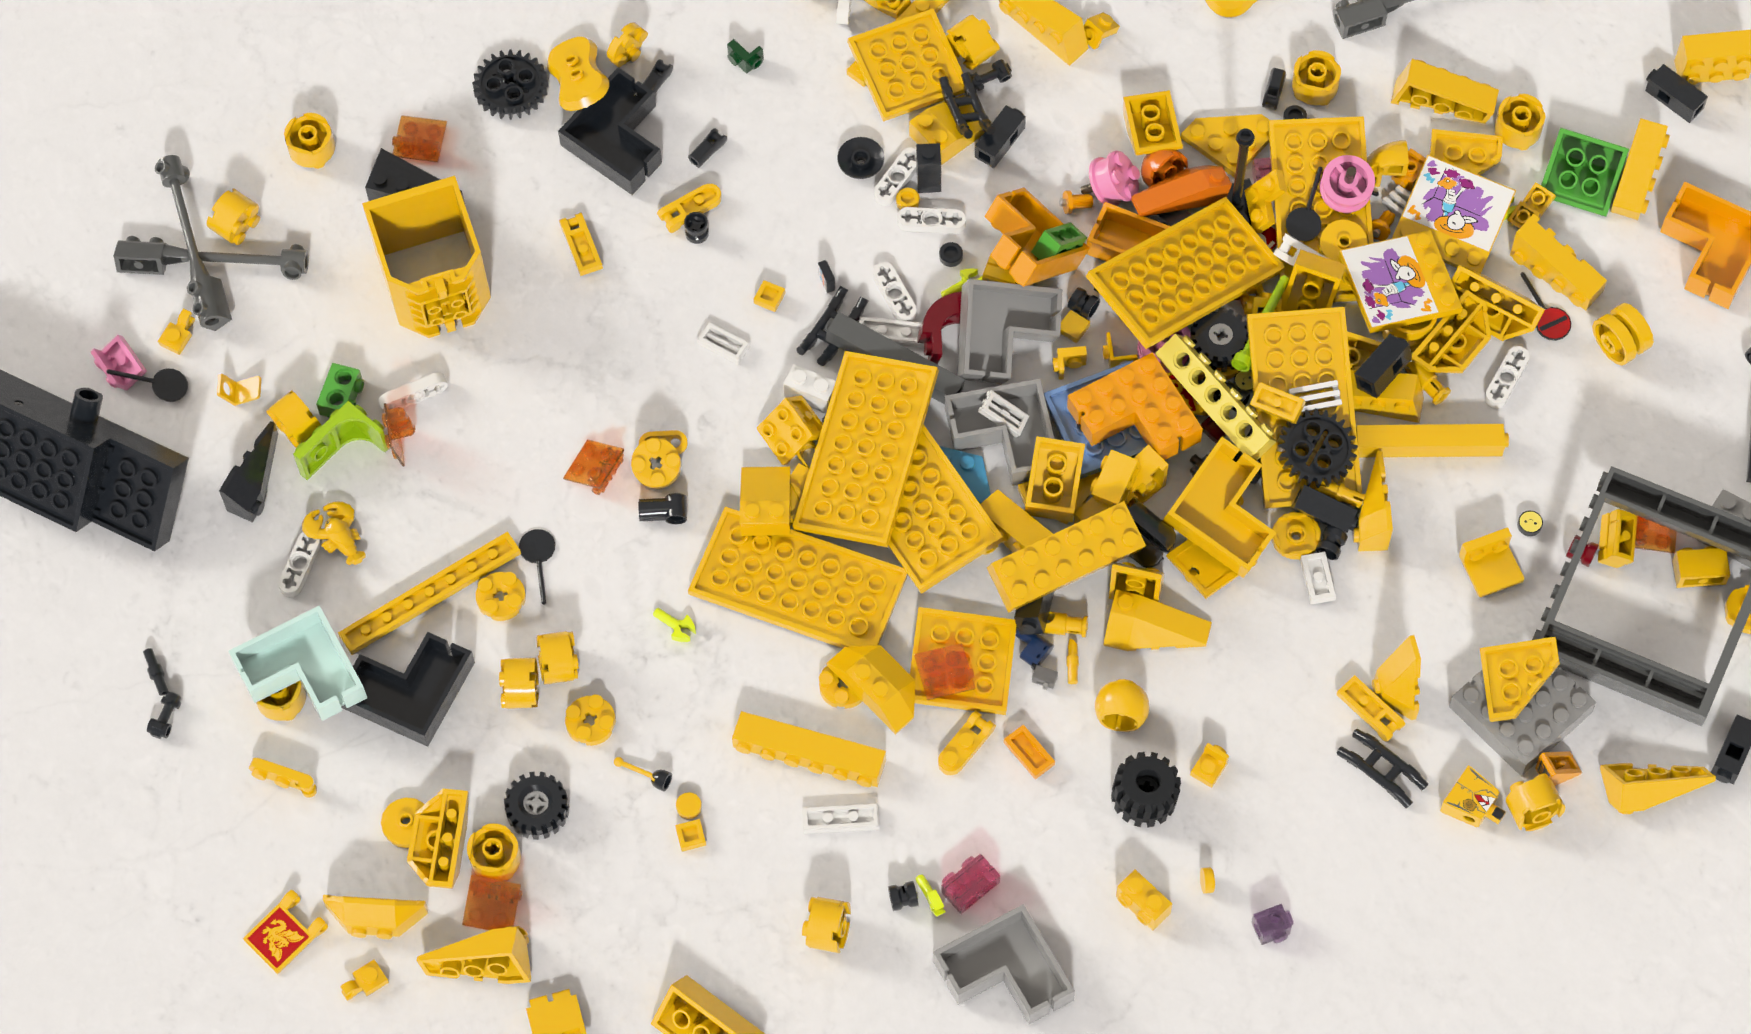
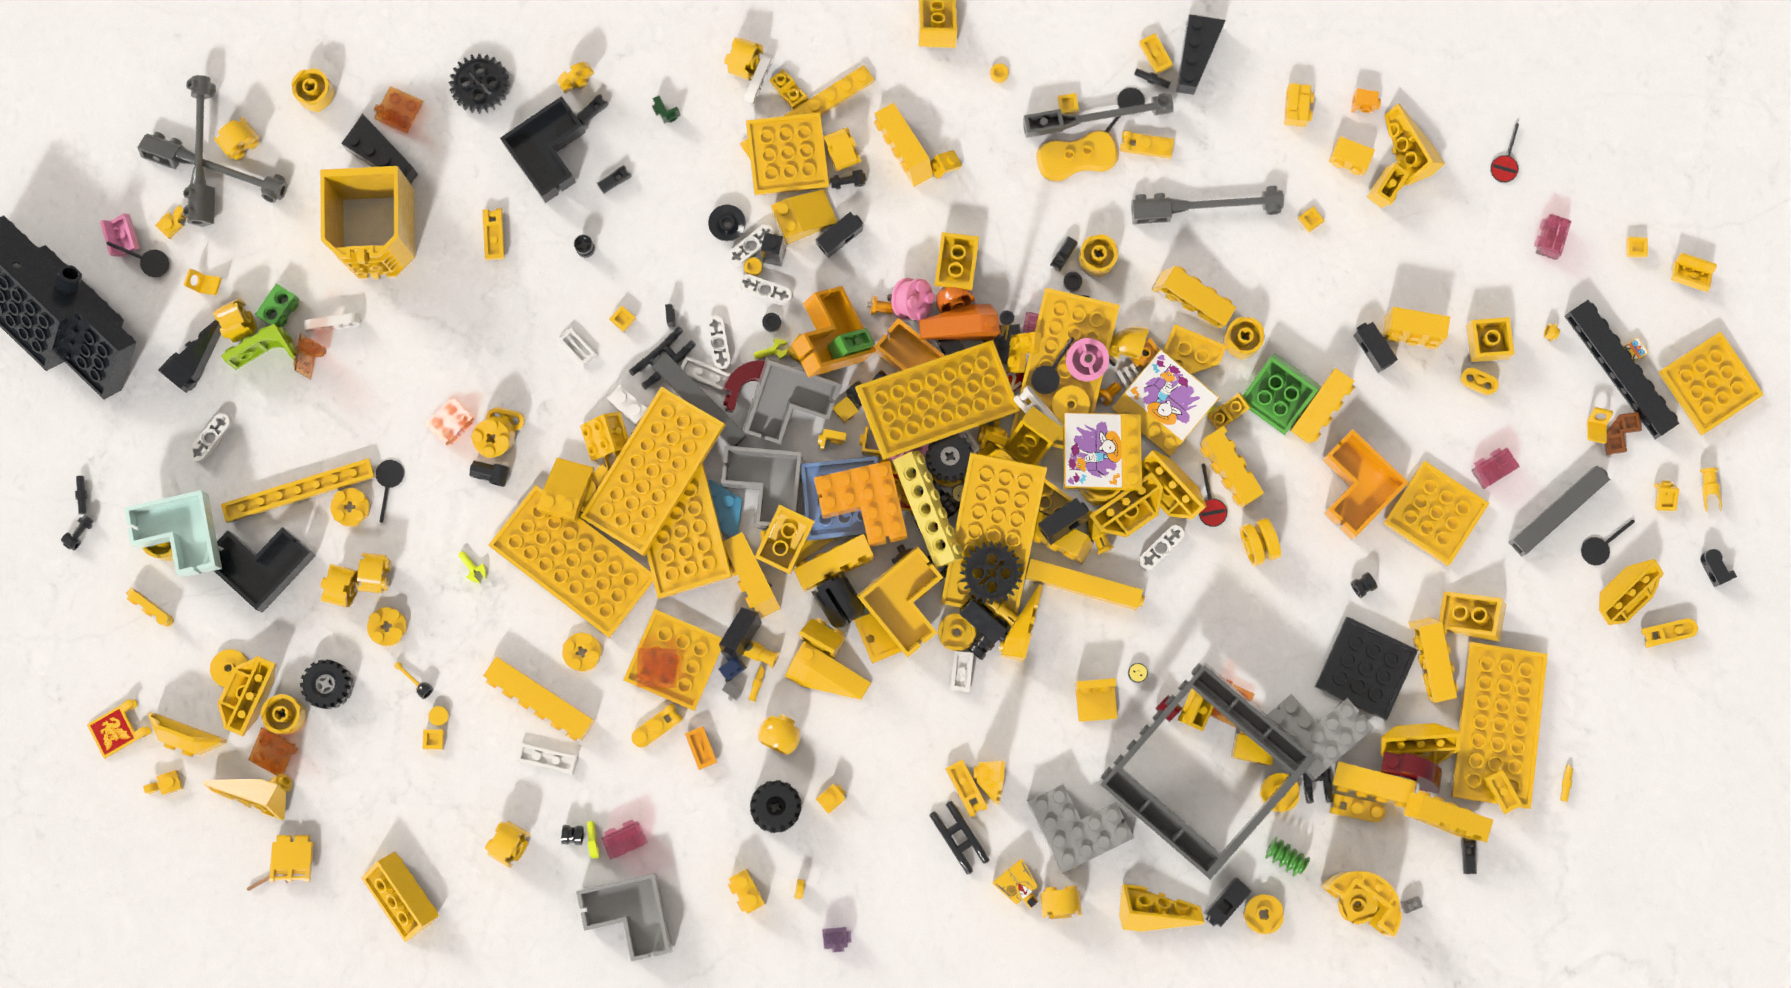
camera: 15 degrees right, 15 degrees up
(336, 530) = (242, 420): yellow animal -> none
(576, 70) = (531, 97): yellow plate -> none
(698, 200) = (586, 225): yellow plate -> none
(877, 682) = (604, 662): yellow wedge -> none
(970, 99) = (826, 198): black piece -> none
(1013, 425) = (754, 461): white tile -> none
(1066, 556) = (769, 611): yellow brick -> none
(1115, 479) = (829, 556): yellow brick -> none
(1217, 138) = (1016, 286): yellow plate -> none
(1241, 359) = (958, 483): lime piece -> none
(1277, 403) = (971, 530): yellow plate -> none
(1336, 393) = (1004, 532): white tile -> none
(1516, 674) = (1078, 803): yellow plate -> none
(1558, 766) = (1091, 877): light orange slope -> none

